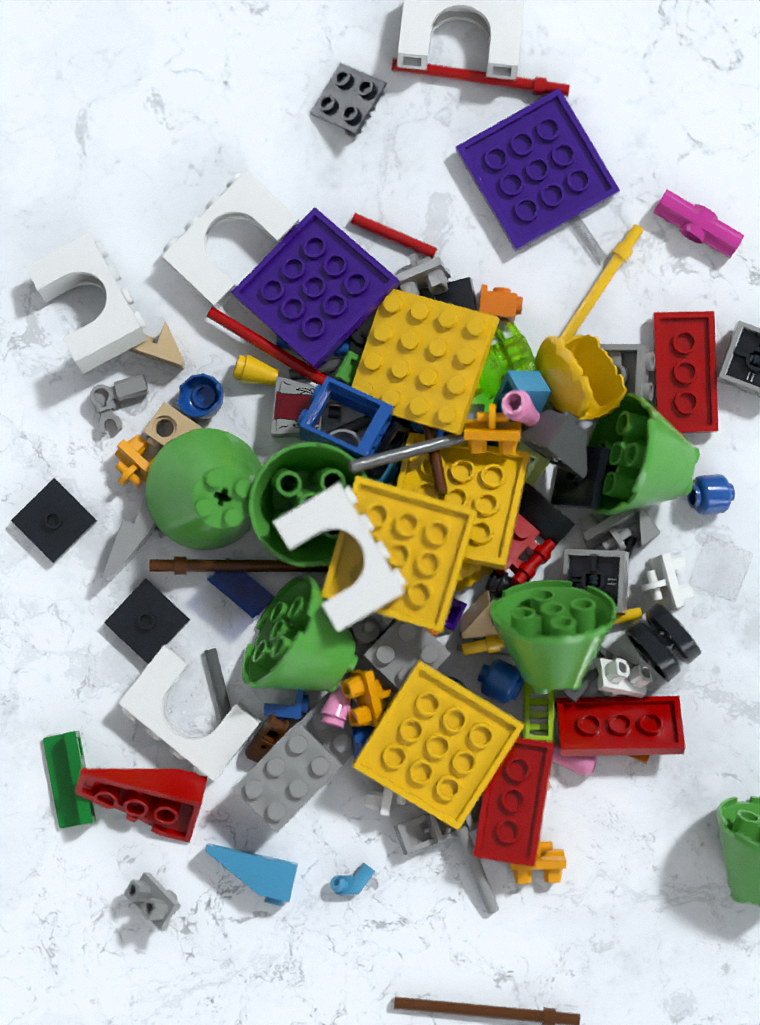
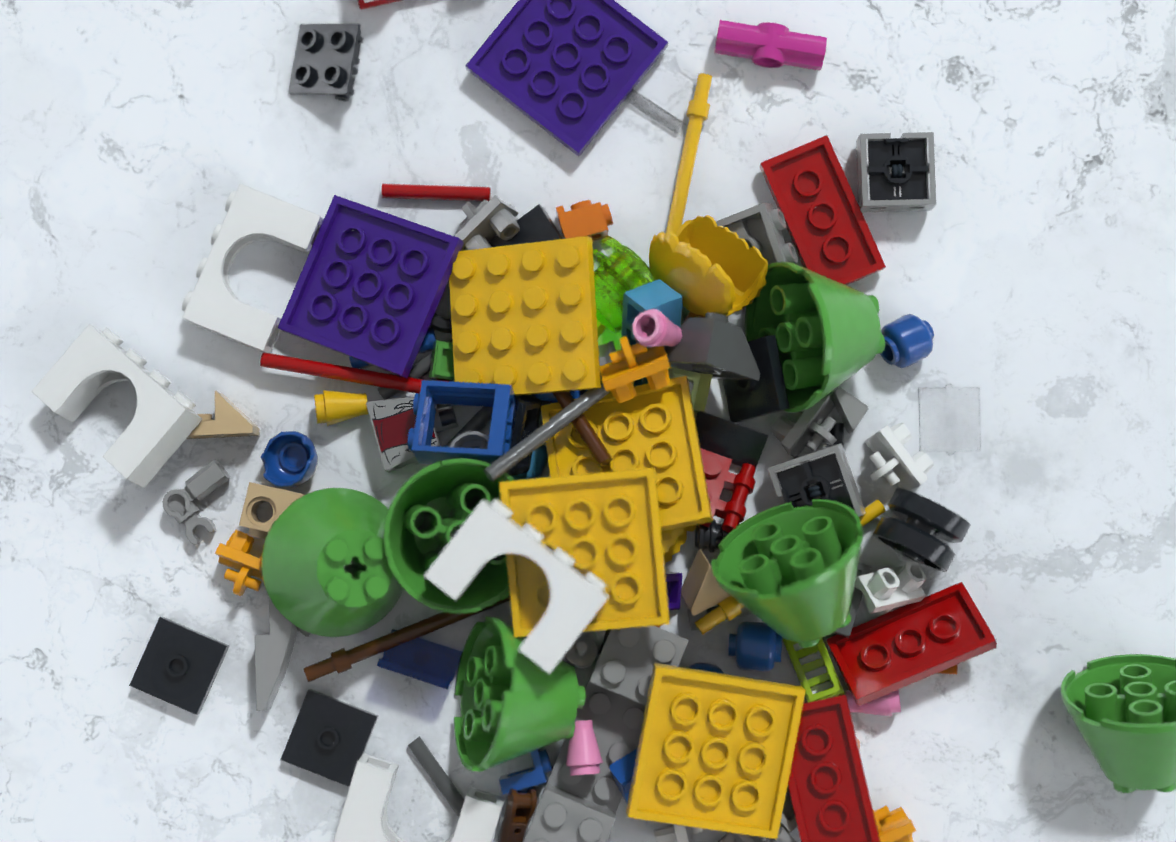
camera: 15 degrees left, 0 degrees up
(369, 696) = (616, 726): light orange hips -> none

